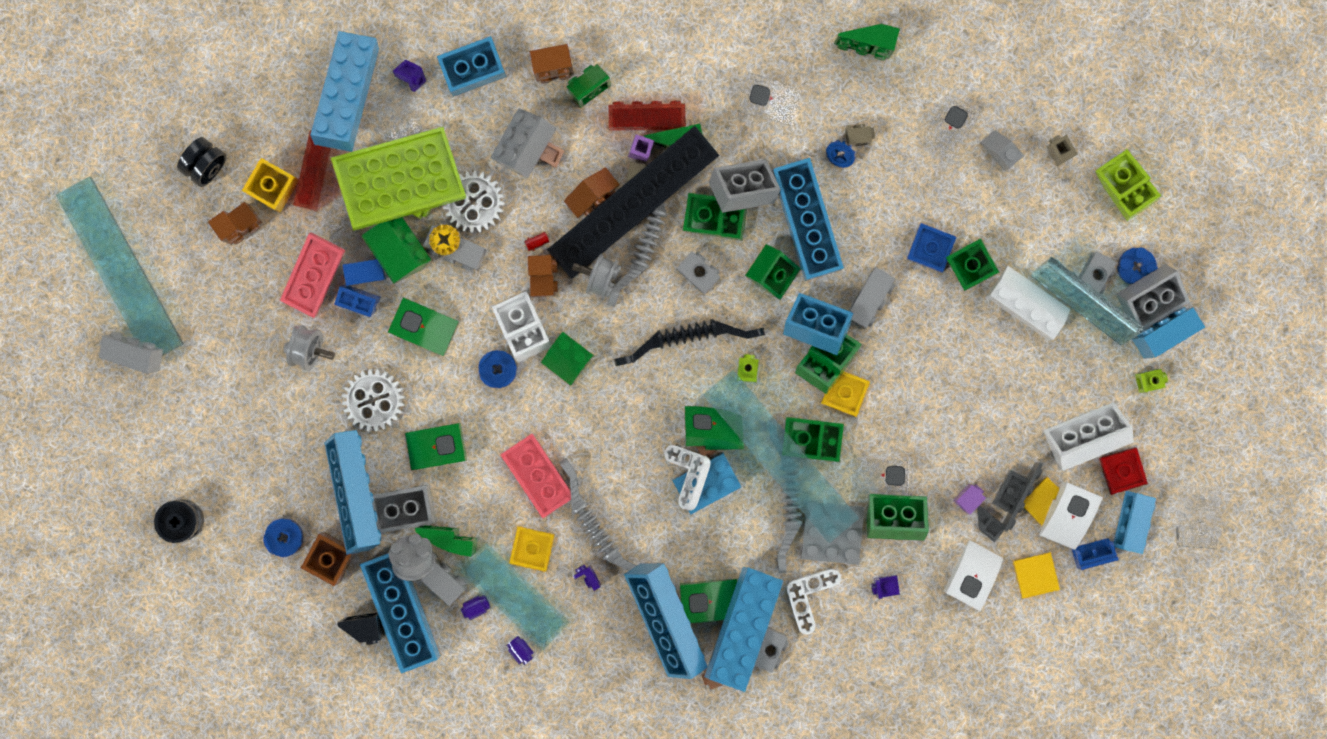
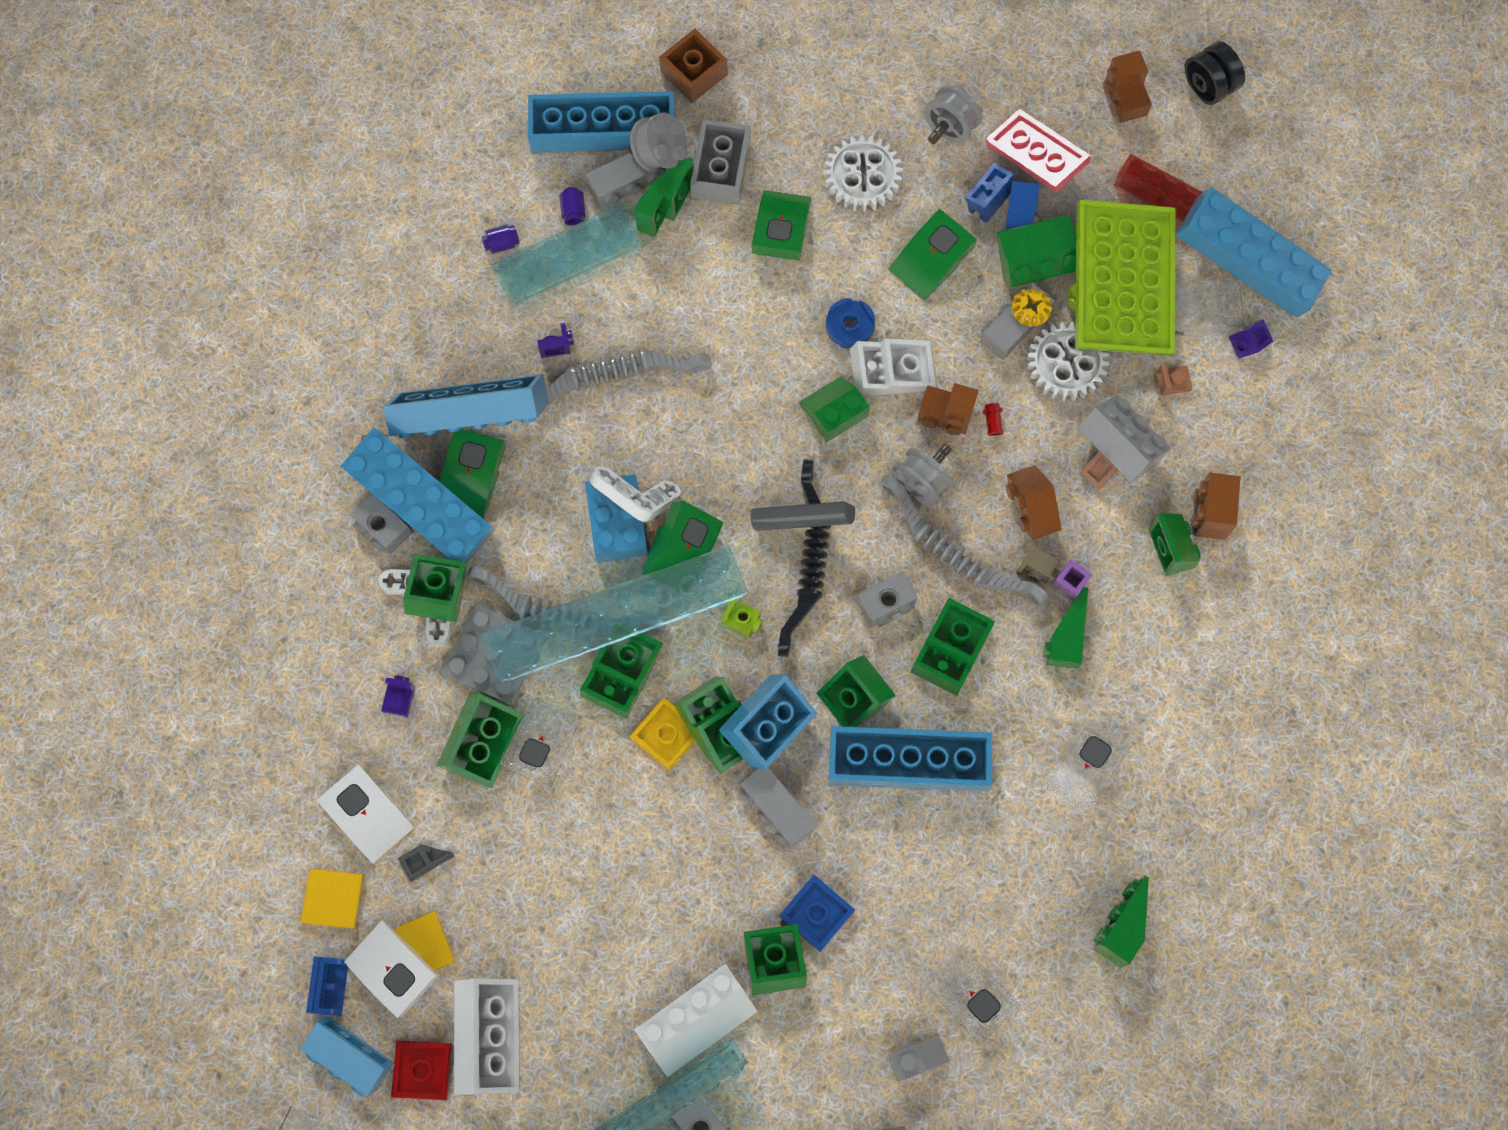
camera: 115 degrees right, 15 degrees down
(270, 185) = (1163, 138): yellow brick -> none
(278, 547) = (745, 20): blue plate -> none
(352, 492) = (762, 107): dark azure brick -> none
(363, 627) = (598, 71): black slope -> none
(461, 122) = (1172, 379): none -> nougat bracket
(471, 66) = (1241, 411): dark azure brick -> none
(531, 548) = (616, 292): yellow tile -> none
(537, 475) = (703, 325): coral plate -> none
(634, 201) = (1007, 549): black plate -> none
(646, 116) = (1111, 603): clear red brick -> none
(662, 350) = (802, 516): none -> dark grey brick
(744, 185) = (981, 688): light grey brick -> none
(805, 590) = (434, 588): none -> green slope
(843, 160) = (974, 836): blue gear -> none
(859, 135) = (1000, 868): dark tan brick -> none
(970, 498) = (467, 844): medium lavender brick -> none
(1013, 493) = (452, 904): dark grey bracket -> none

